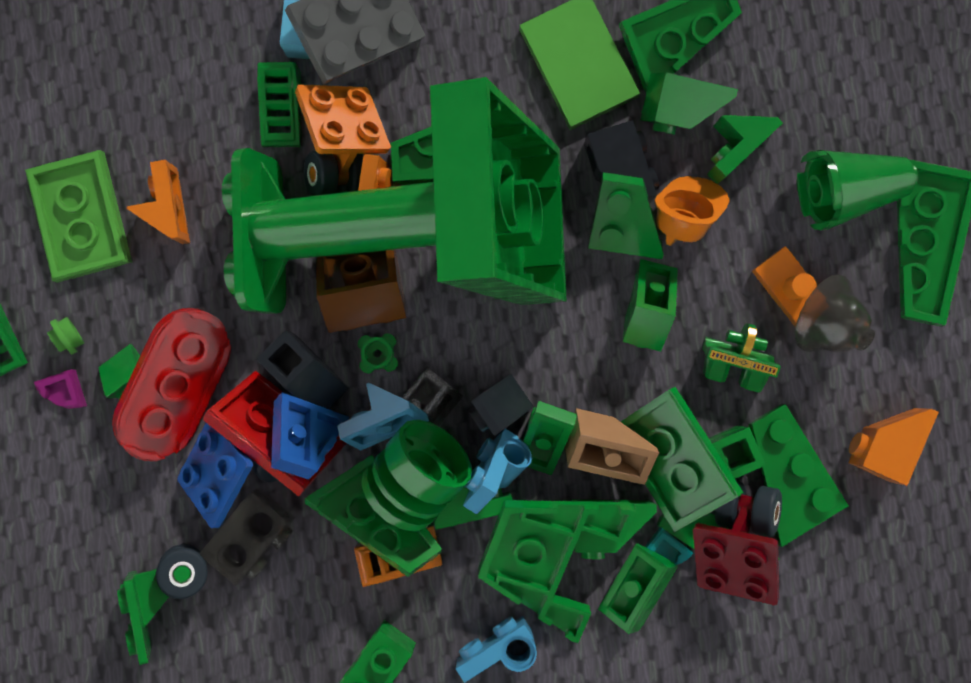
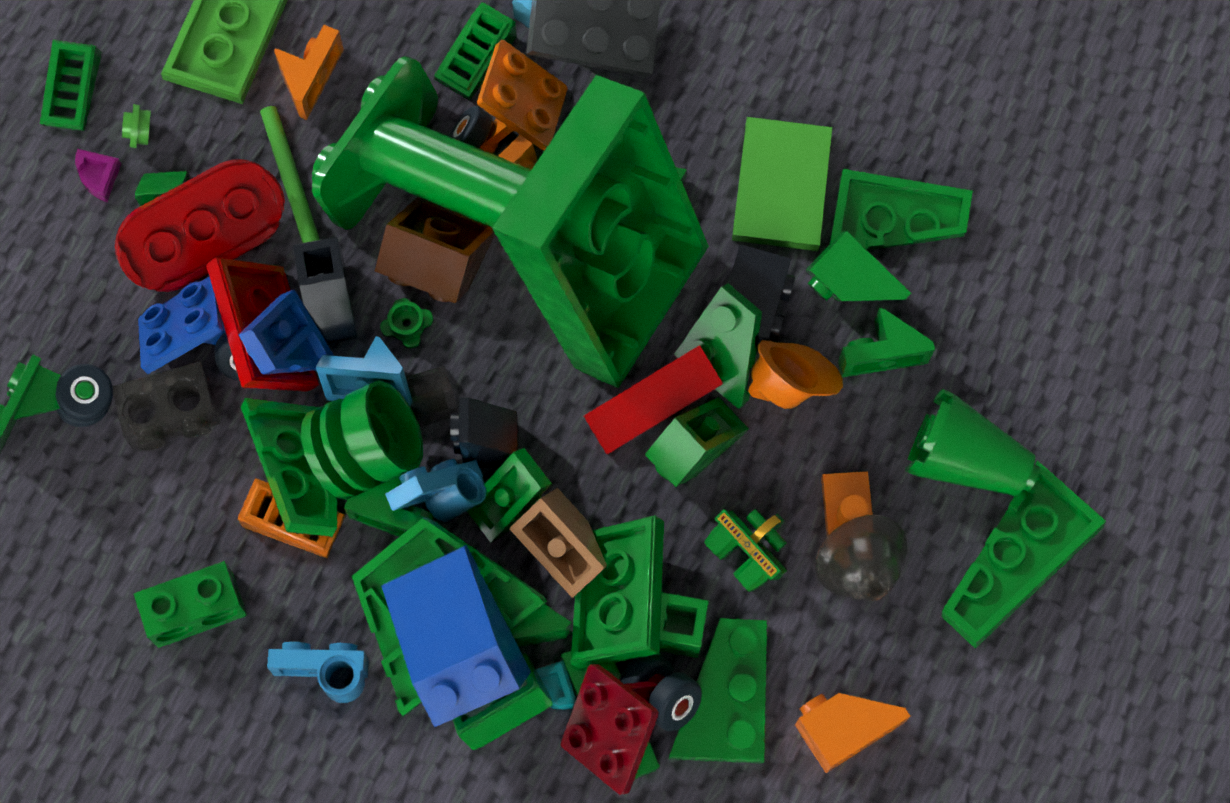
camera: 30 degrees right, 15 degrees down
(212, 299) = (289, 174): none -> bright green bar
(589, 580) = (453, 637): none -> blue slope
(600, 295) = (653, 399): none -> red tile

